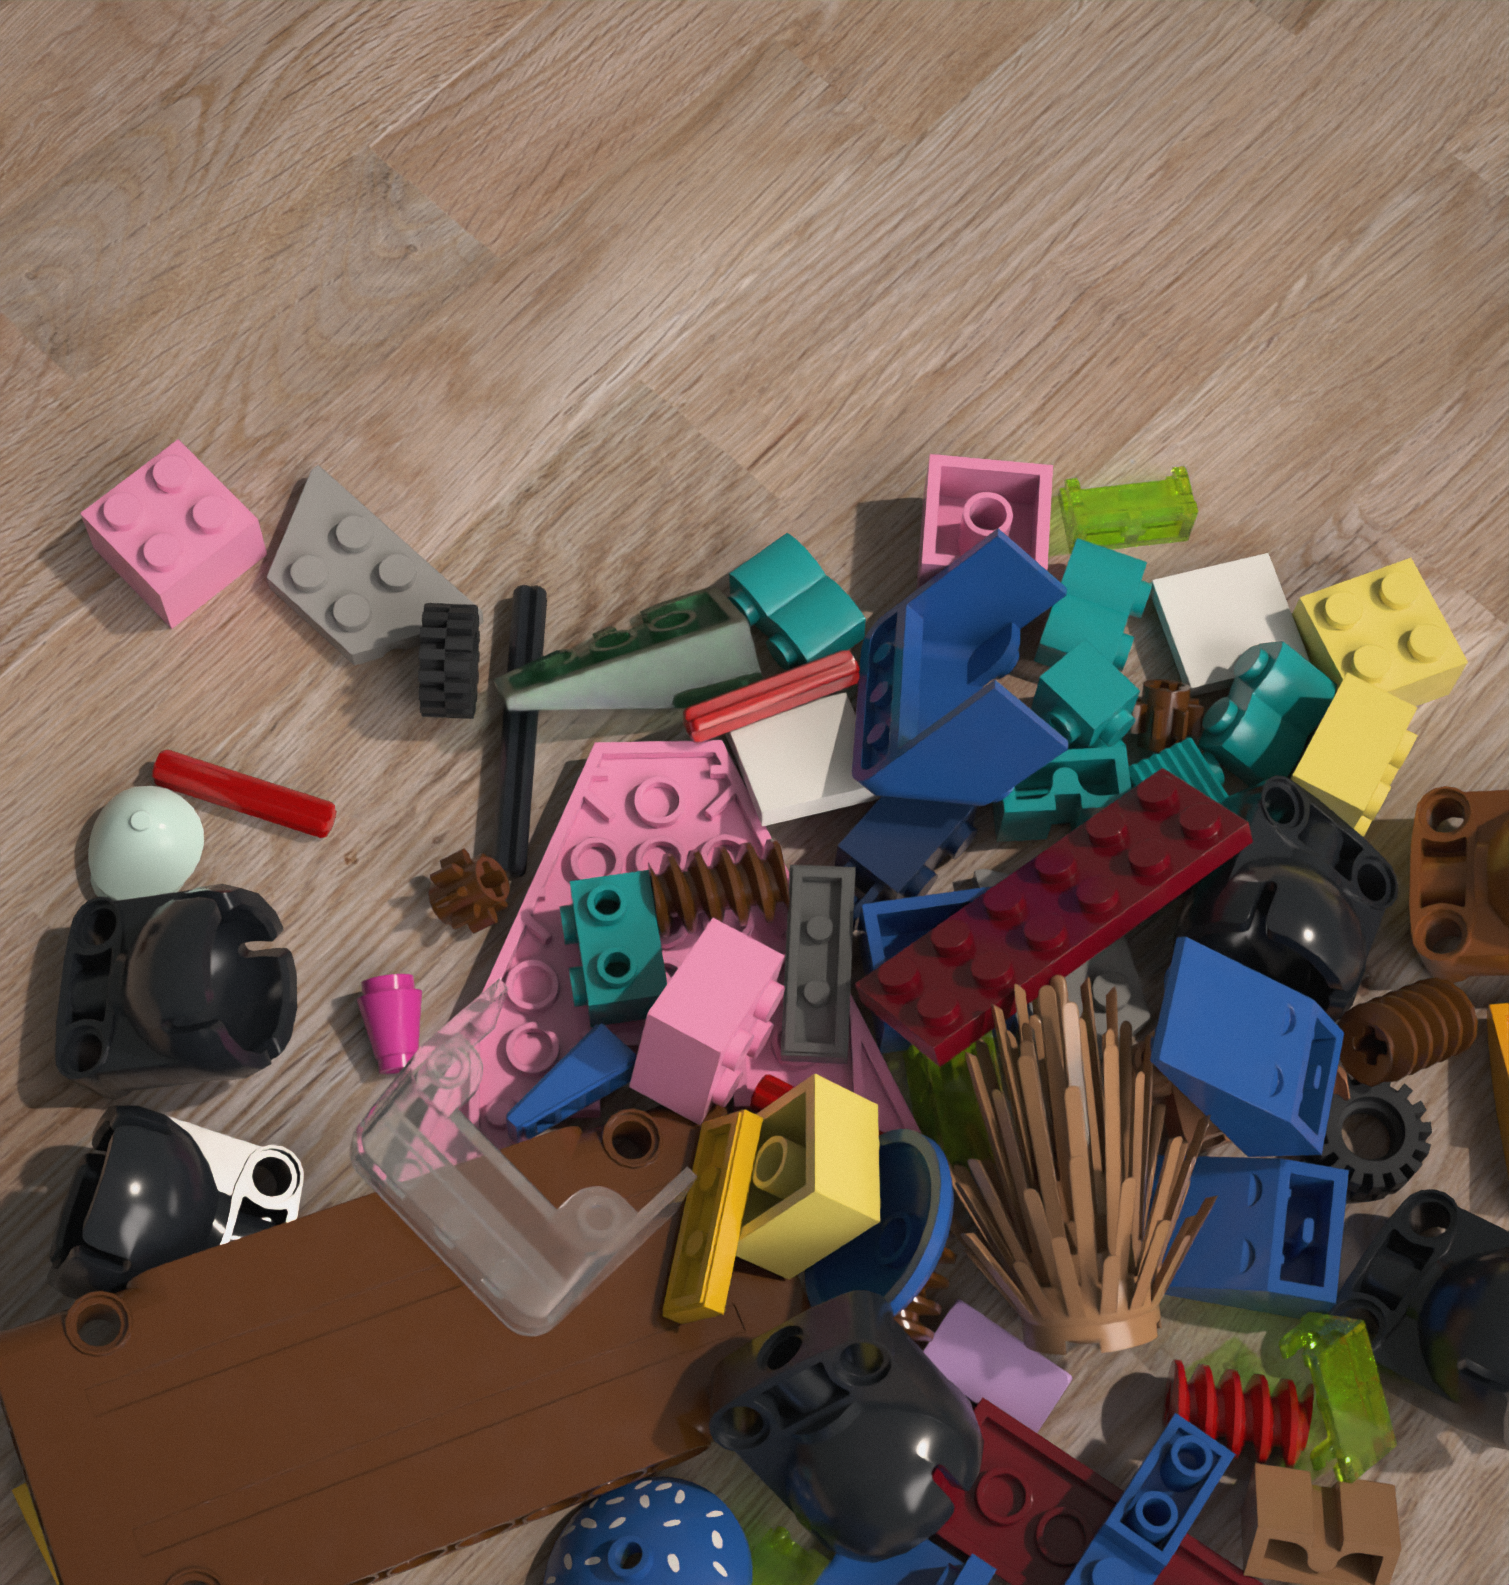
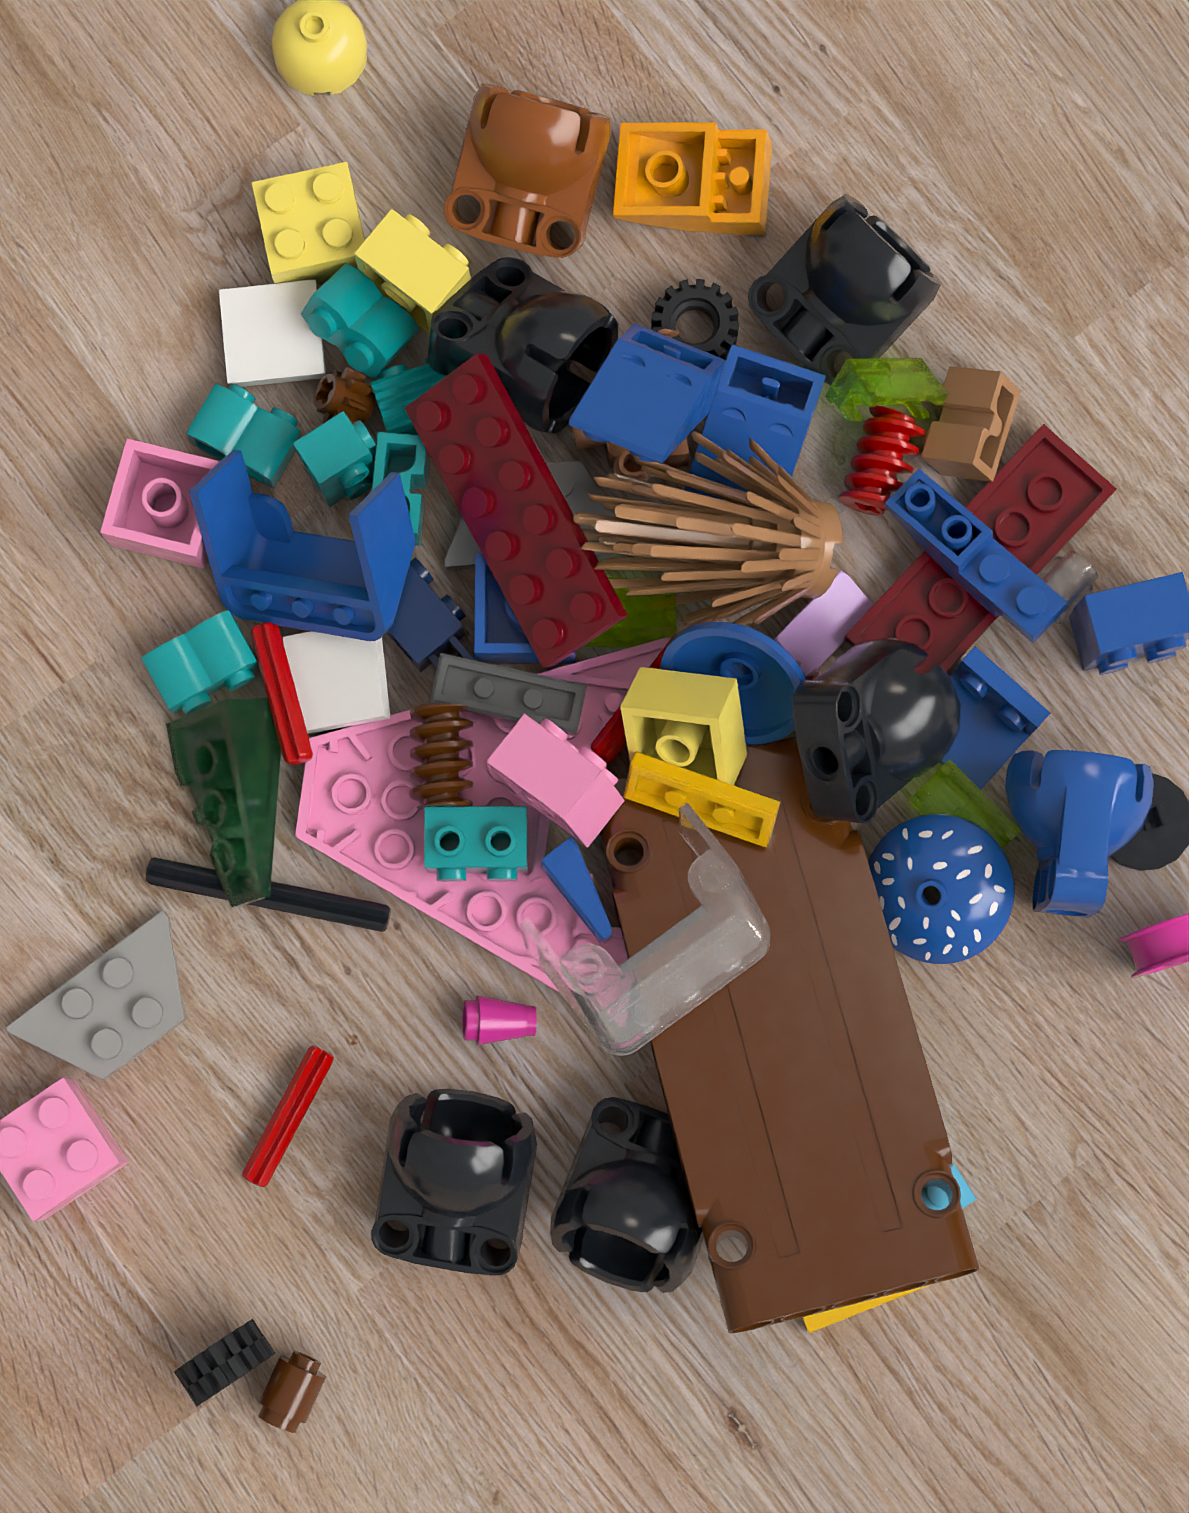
camera: 75 degrees left, 15 degrees up
(144, 844) = (323, 1198): light aqua hat -> none
(449, 660) = (210, 939): black tyre -> none
(468, 891) = (403, 949): reddish brown gear -> none
(1129, 512) = (158, 389): clear neon green hinge -> none
(1406, 1031) = (630, 278): reddish brown piece -> none

